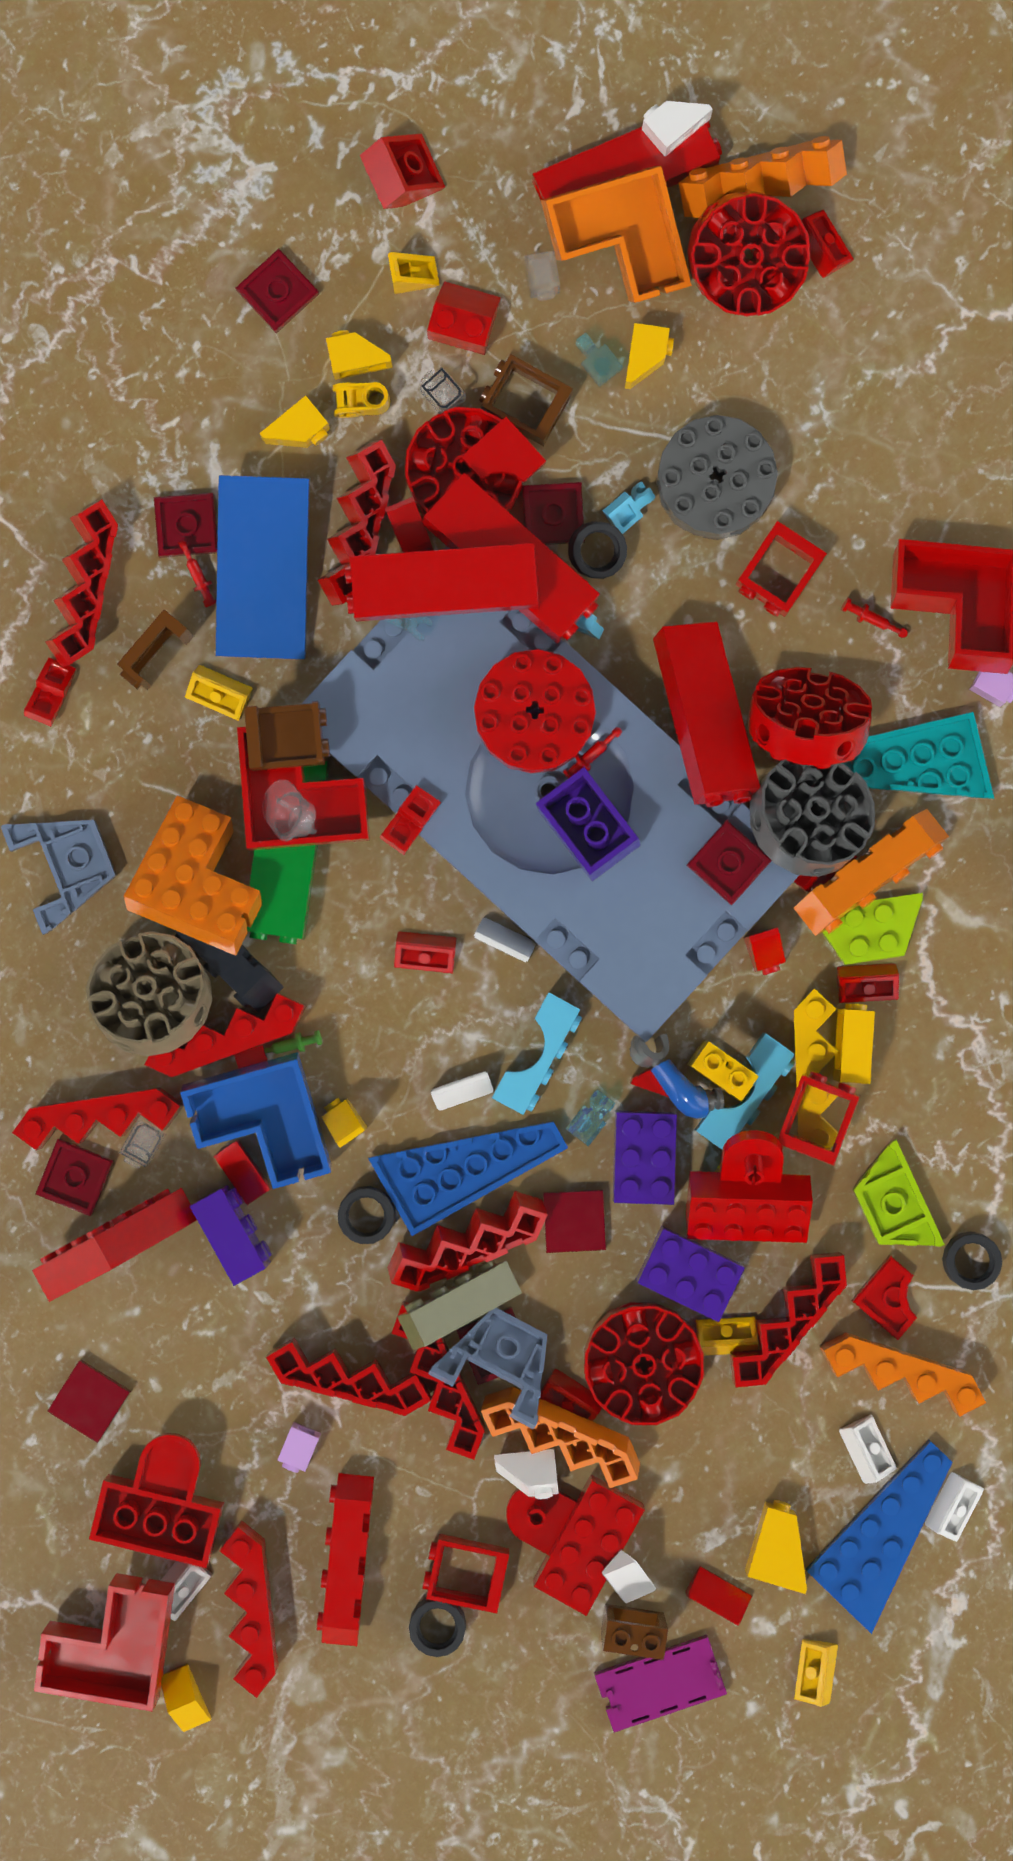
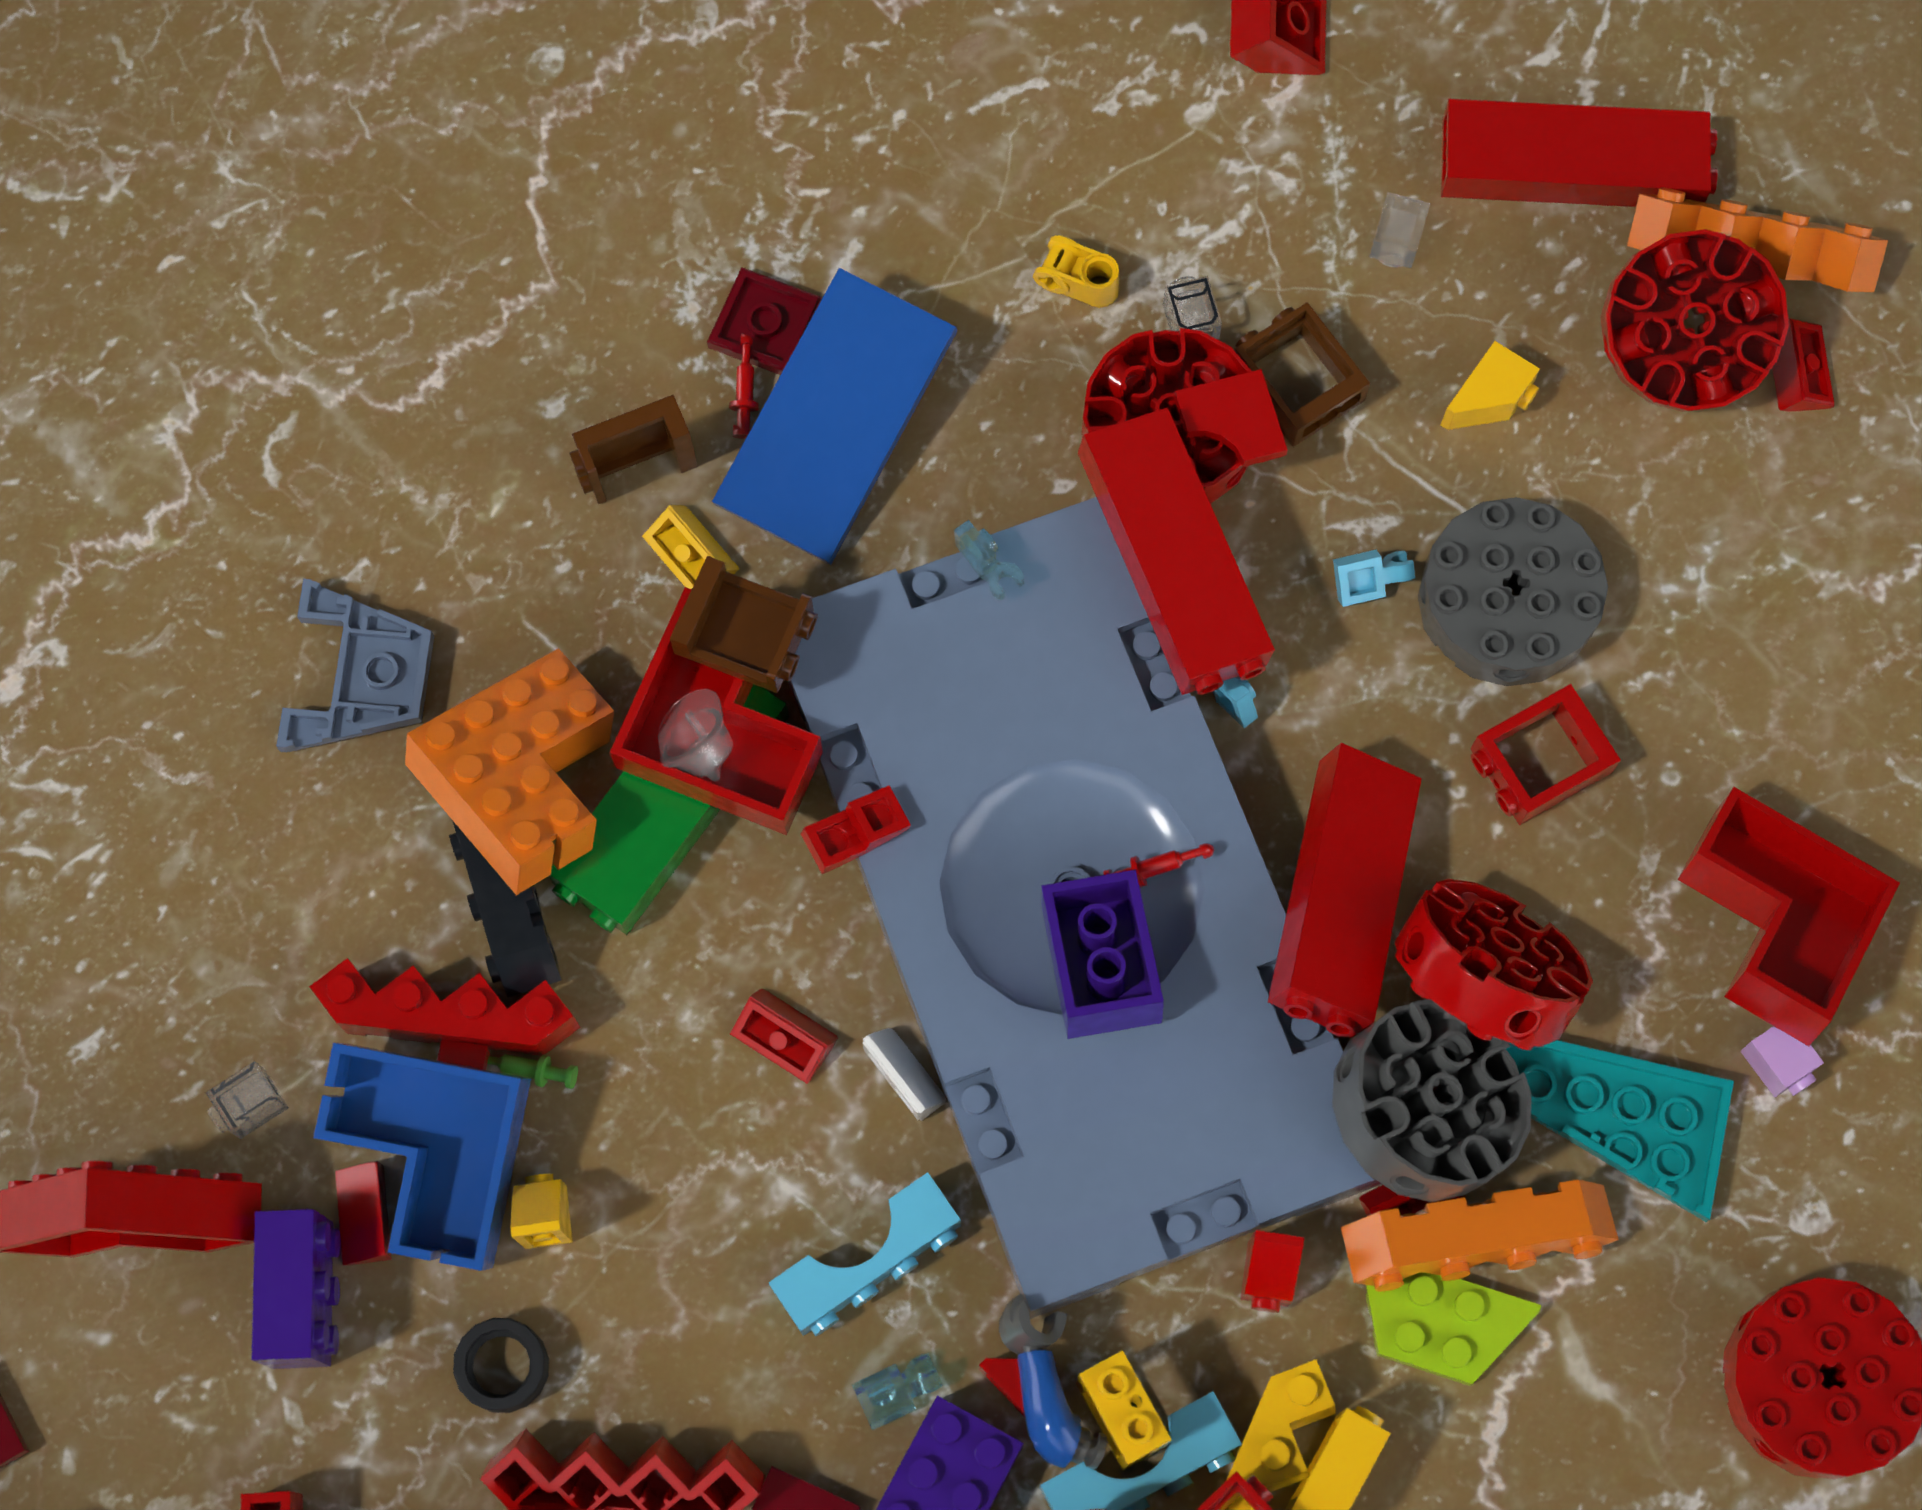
camera: 30 degrees right, 15 degrees down
(49, 692) = (470, 444): red slope -> none
(74, 1177) = (128, 1102): dark red tile -> none
(81, 1116) = (187, 1019): red brick -> none
(90, 569) = (606, 309): red brick -> none
(149, 994) = (370, 892): dark tan brick -> none
(277, 291) = (1039, 96): dark red tile -> none
(297, 427) = (975, 266): yellow slope -> none
(355, 355) = (1100, 216): yellow slope -> none
(365, 510) = (1009, 406): red brick -> none
(408, 526) = (1055, 460): red slope -> none
(412, 272) = (1227, 149): yellow slope -> none
(442, 582) = (1065, 526): red brick -> none
(449, 1175) = (647, 1369): blue wing -> none
(462, 1090) = (732, 1255): white slope -> none
(463, 318) = (1265, 237): red slope -> none
(530, 680) = (1097, 719): red brick -> none
(553, 511) = (1268, 535): dark red tile -> none
(600, 362) = (1422, 374): clear light blue plate -> none
(617, 560) = (1334, 599): black tyre -> none
(632, 216) = (1555, 199): orange piece -> none
(674, 123) = (1670, 117): white slope -> none
(729, 862) = (1277, 1111): dark red tile -> none
(868, 983) = (1400, 1399): red slope -> none
(871, 617) = (1645, 883): red piece -> none

